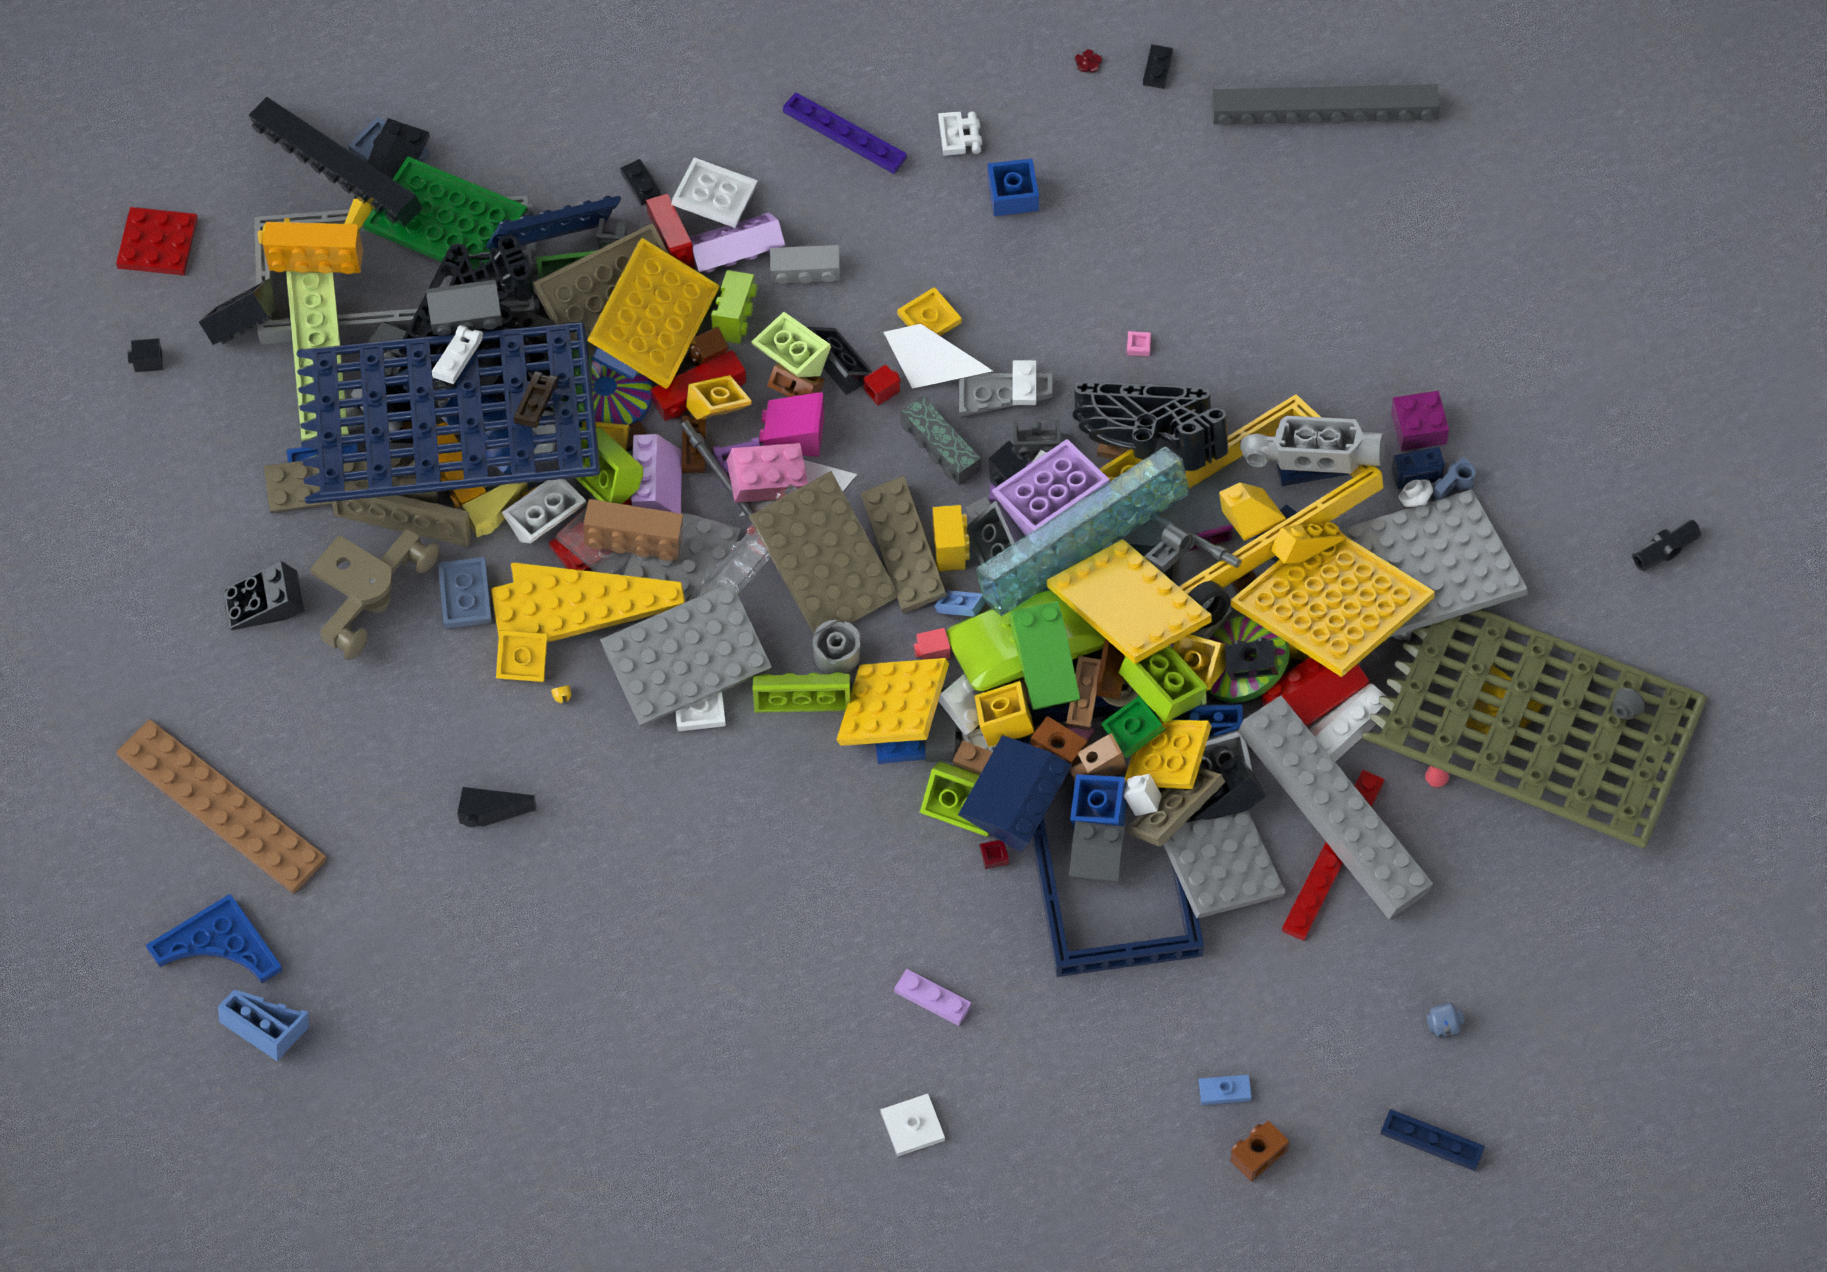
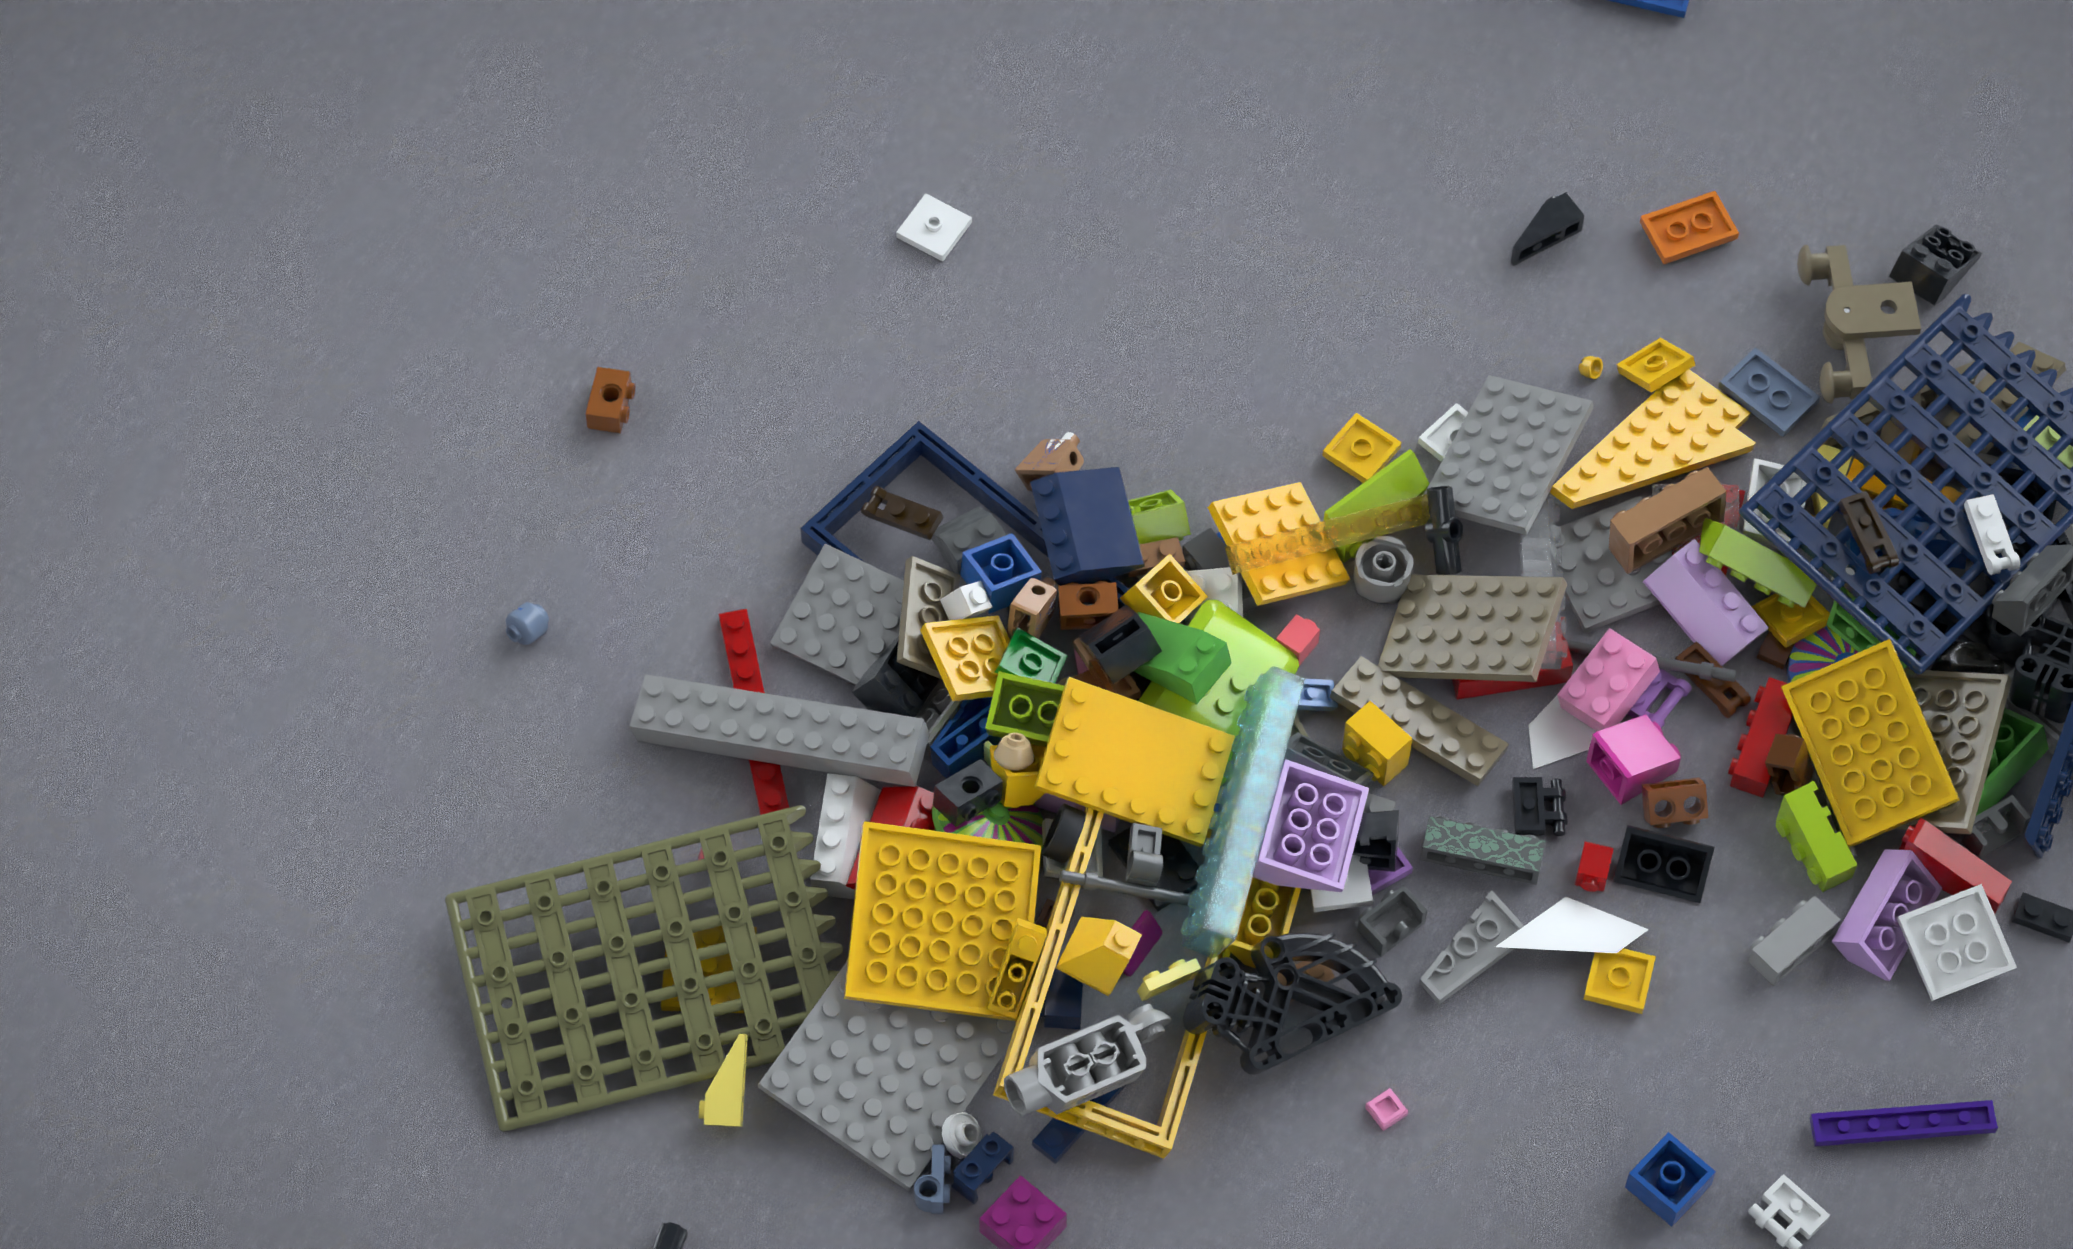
camera: 140 degrees right, 0 degrees up
(221, 806) = (1775, 80): medium nougat plate -> none
(395, 739) = (1689, 227): none -> orange plate
(716, 397) = (1724, 715): yellow slope -> none
(768, 744) = (1361, 448): none -> yellow plate
(776, 635) = (1444, 530): none -> black piece
(793, 346) = (1711, 821): yellowish green slope -> none
(861, 669) = (1328, 534): none -> clear yellow plate
(885, 446) = (1529, 806): none -> black plate
(932, 997) = (1012, 340): lavender plate -> none
(989, 871) = (1049, 458): none -> medium nougat torso
(1024, 382) = (1455, 964): white plate -> none
(1071, 682) = (1120, 643): none -> black slope
(1127, 900) = (902, 513): none -> dark brown plate
(1203, 659) = (1014, 752): none -> tan cone
(1217, 474) = (1158, 982): none -> light yellow plate
(1224, 1089) = (684, 436): medium blue plate -> none
(1432, 1140) = (459, 514): dark blue plate -> none
(1545, 612) = (726, 1093): none -> light yellow slope
(1628, 703) = (565, 1028): dark grey cone -> none

